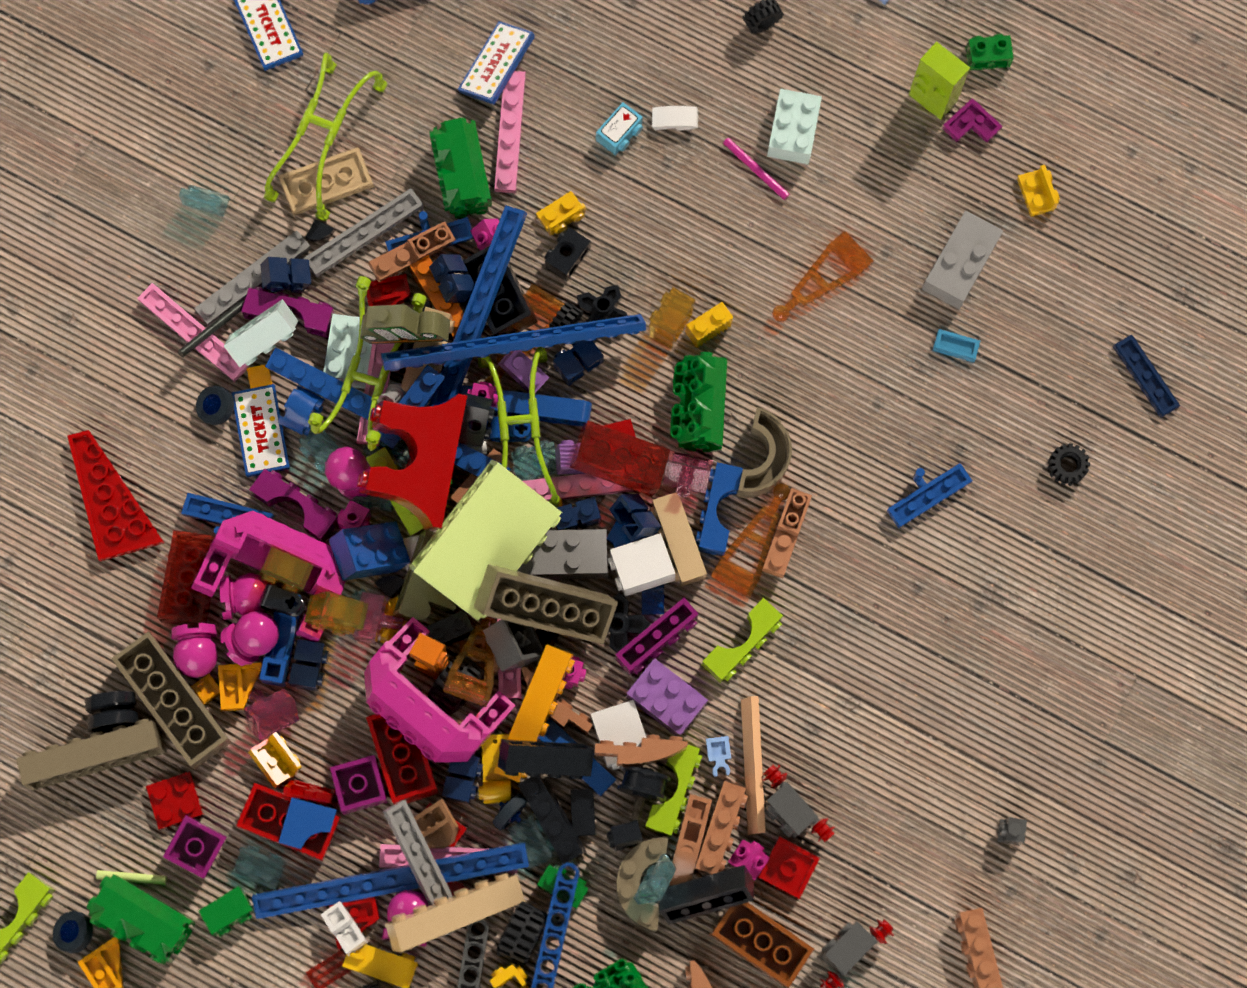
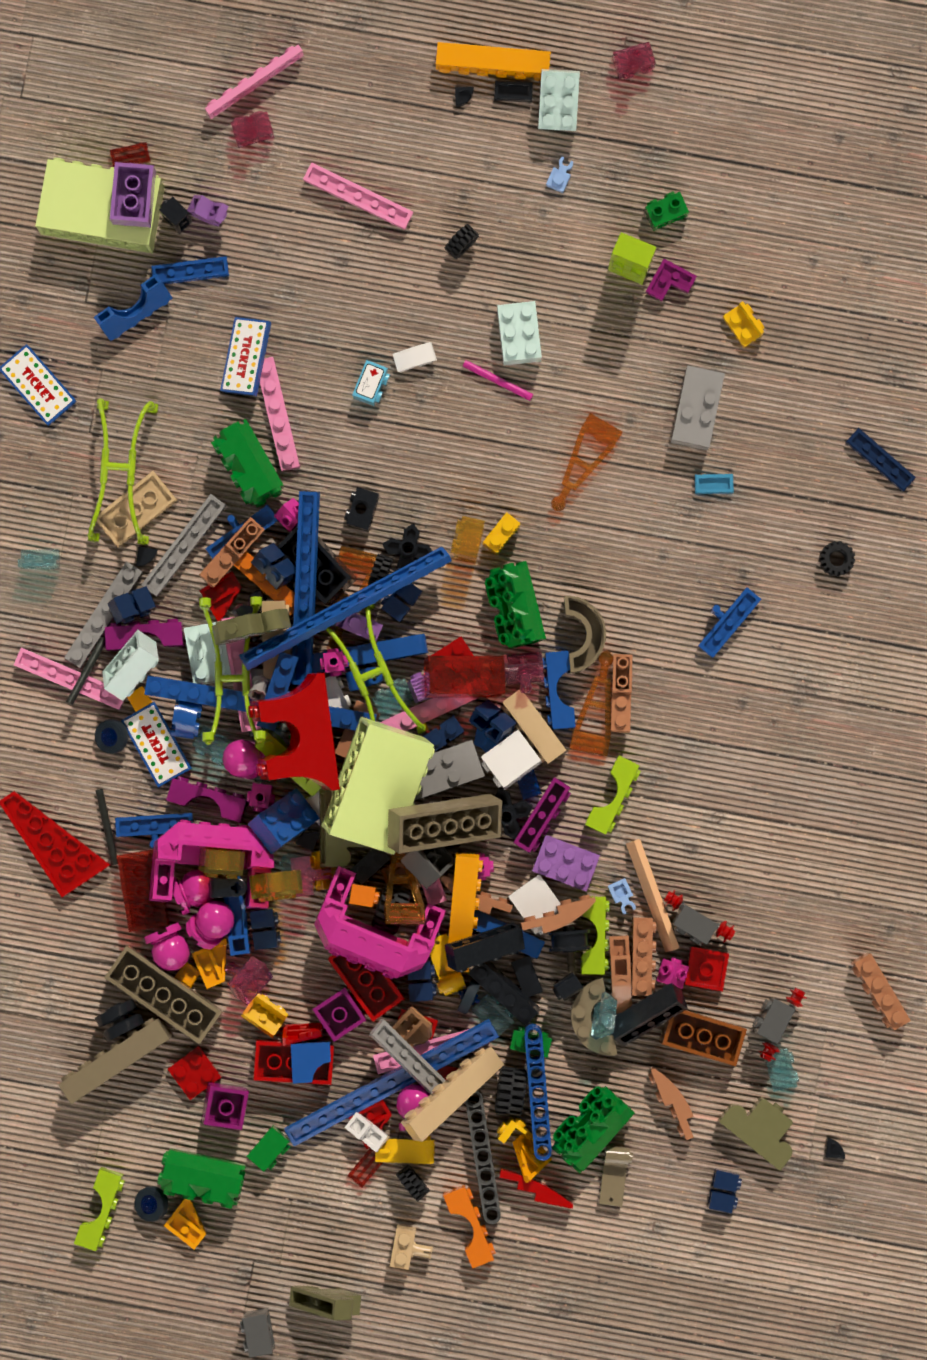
camera: 15 degrees left, 10 degrees up
(134, 877) = (182, 1144): yellowish green bar -> none
(175, 501) = (107, 826): none -> pearl dark grey bar
(259, 867) = (281, 1104): clear light blue bracket -> none
(476, 409) = (336, 684): black brick -> none
(561, 213) = (345, 473): yellow bracket -> none
(1012, 831) = (877, 882): dark grey brick -> none

